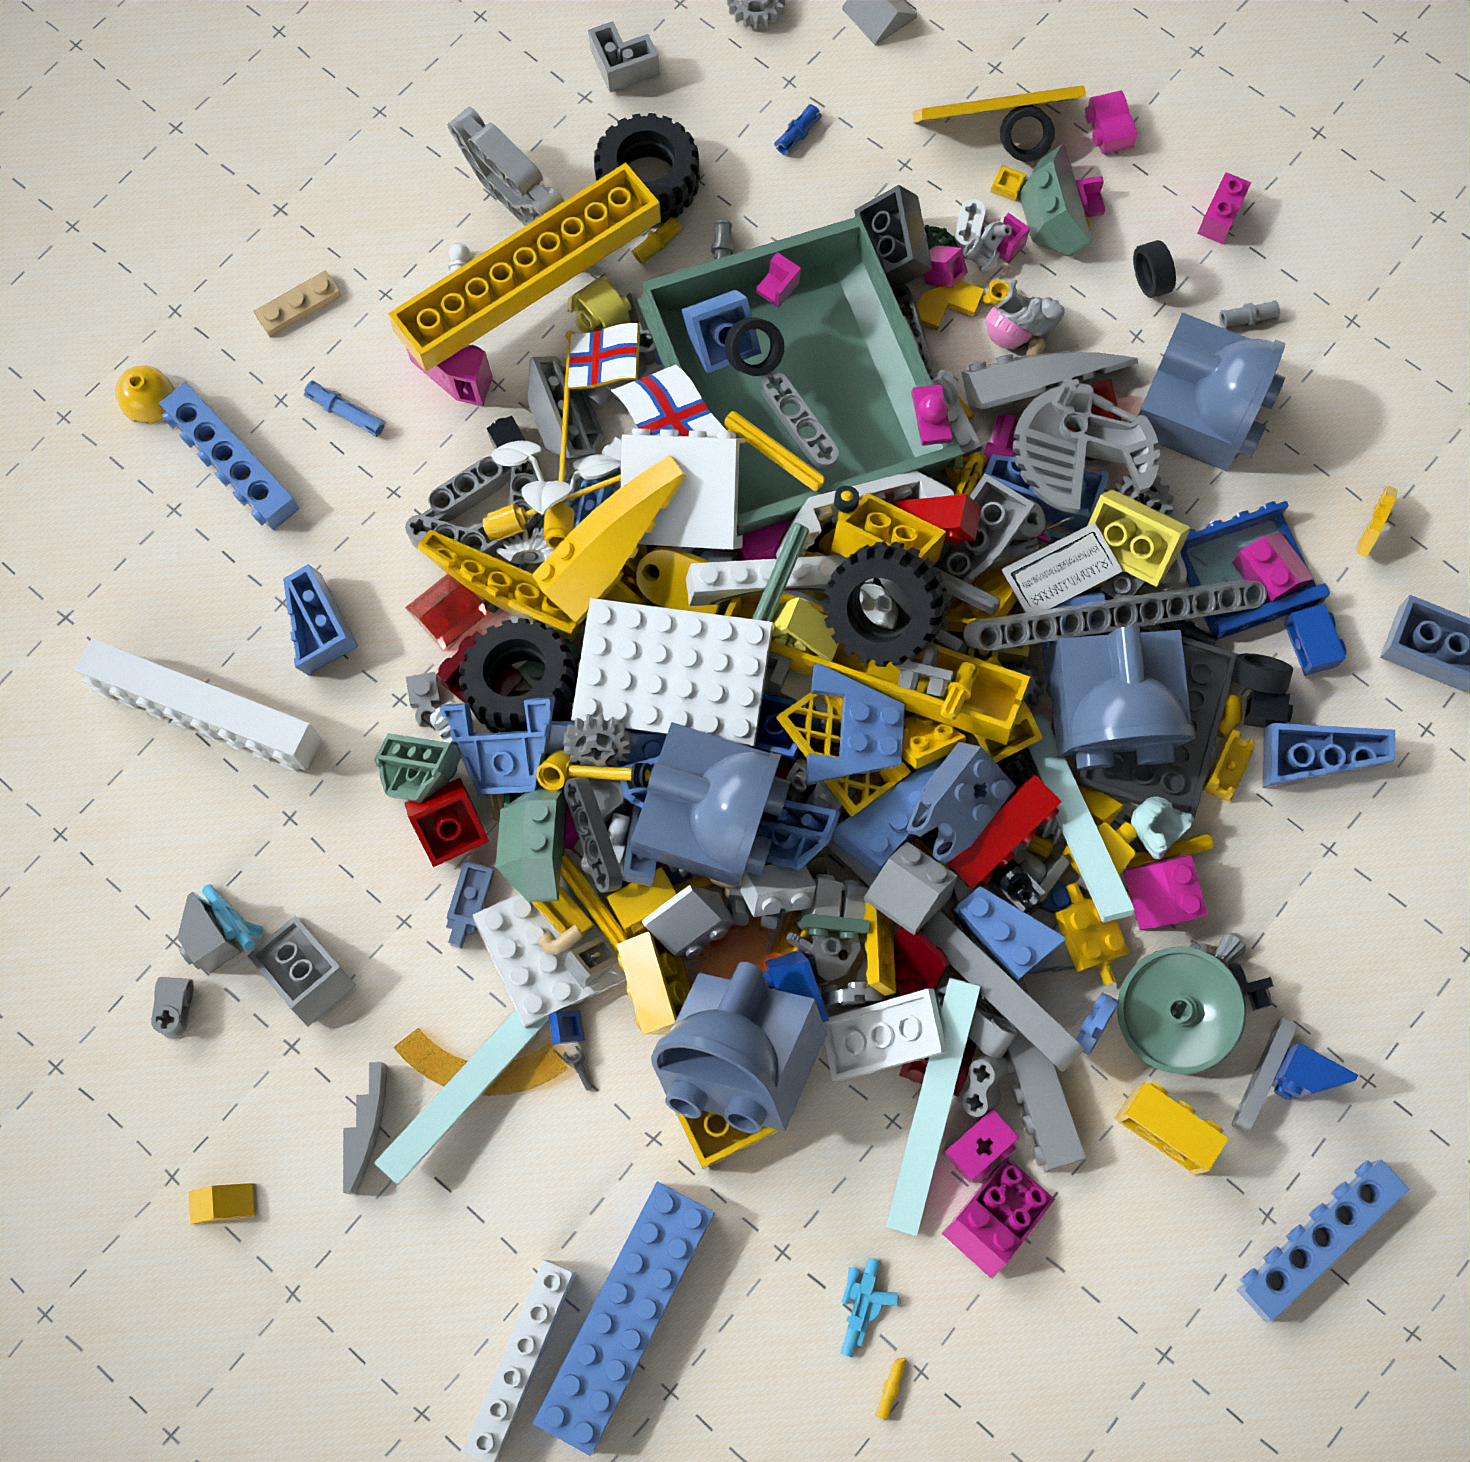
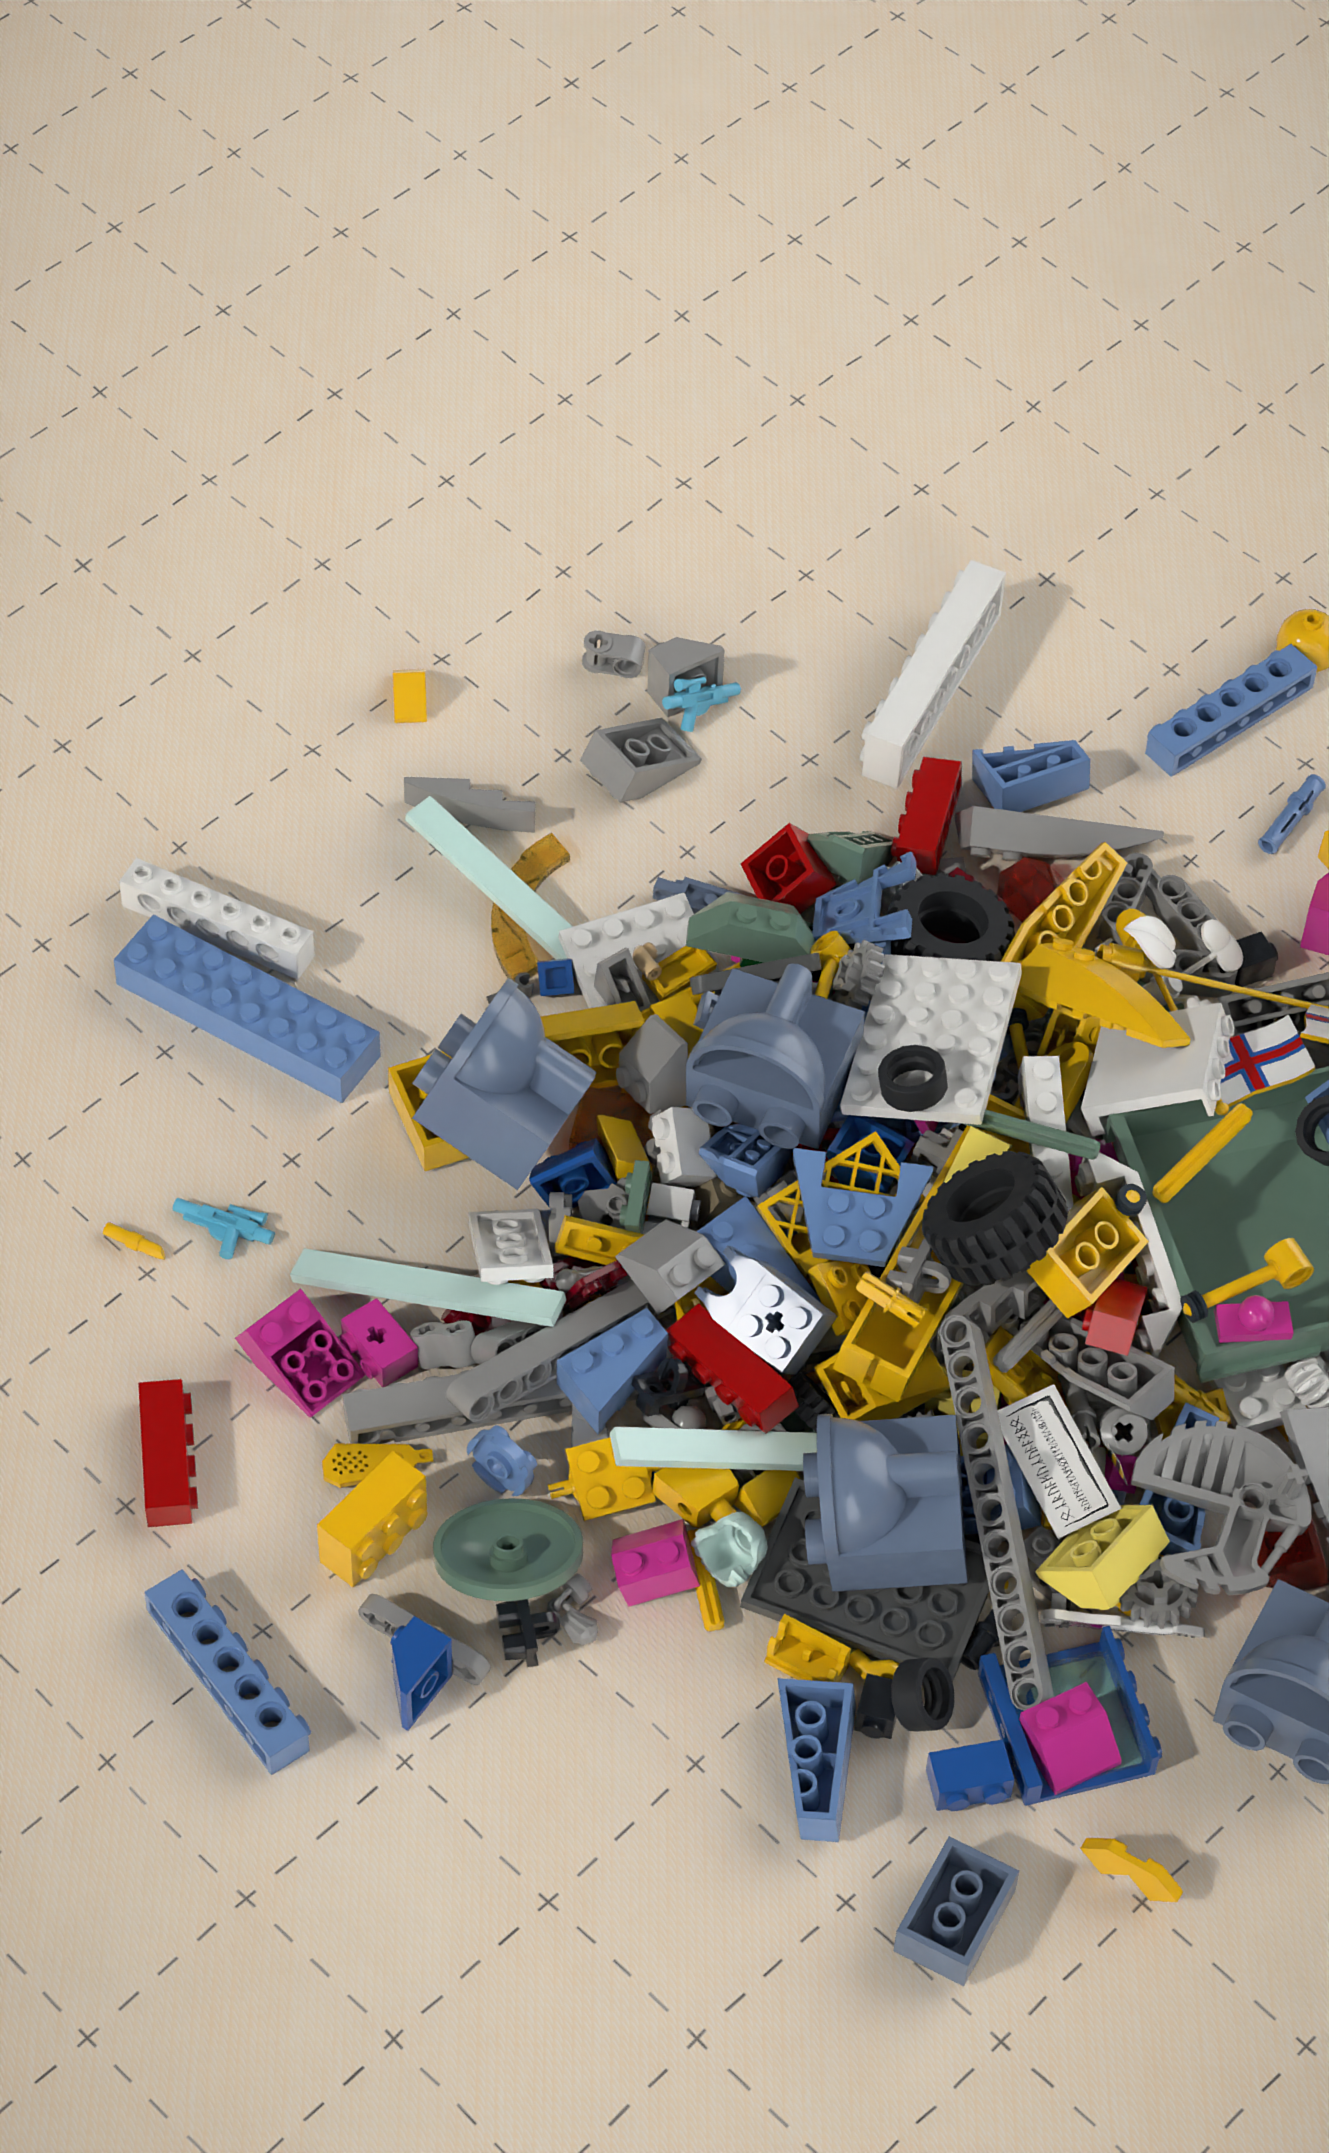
camera: 90 degrees right, 20 degrees down
(365, 705) = (929, 813): none -> red brick
(388, 628) = (1040, 836): none -> light grey wedge
(724, 660) = (910, 1059): none -> black tyre
(772, 943) = (620, 1144): none -> yellow slope
(795, 422) = (1245, 1185): light grey beam -> none
(881, 387) = (1285, 1264): none -> yellow piece
(918, 978) = (568, 1277): none -> light grey piece
(1095, 1135) = (374, 1455): none -> yellow piece
(1118, 1324) = (166, 1453): none -> red brick

